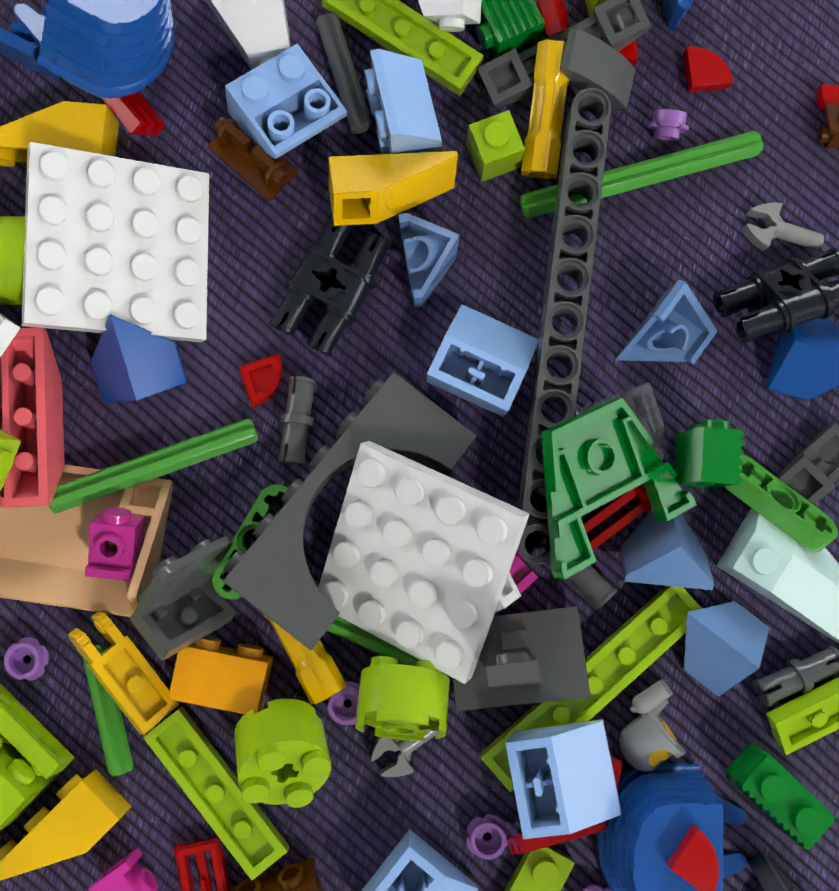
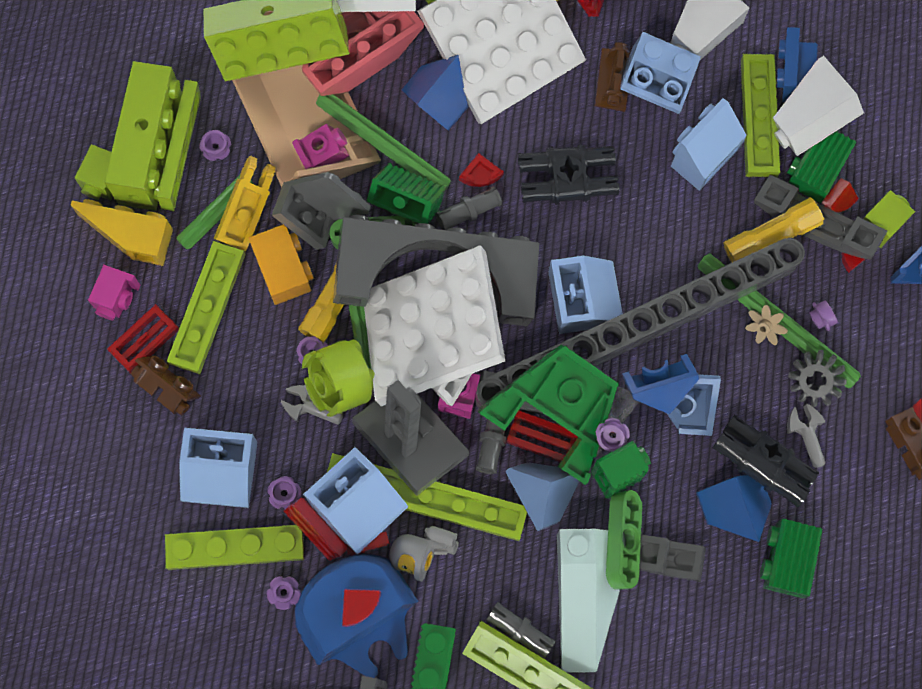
camera: 60 degrees right, 10 degrees down
(235, 482) = (406, 194): none -> green brick
(281, 754) = (258, 324): lime brick -> none
(344, 72) = (709, 95): dark grey axle -> none
(383, 185) = (653, 165): yellow slope -> none
(427, 253) = (626, 221): medium blue slope -> none
(495, 146) = (726, 215): lime brick -> none
(597, 65) = (823, 244): dark grey slope -> none
(641, 190) = (766, 325): none -> tan plant
(646, 347) = (663, 386): none -> blue slope
(678, 449) = (612, 443): none -> medium lavender plate
(705, 70) = (877, 318): red tile -> none
(723, 645) = (507, 562): medium blue slope -> none
(737, 177) = (827, 386): none -> dark grey gear

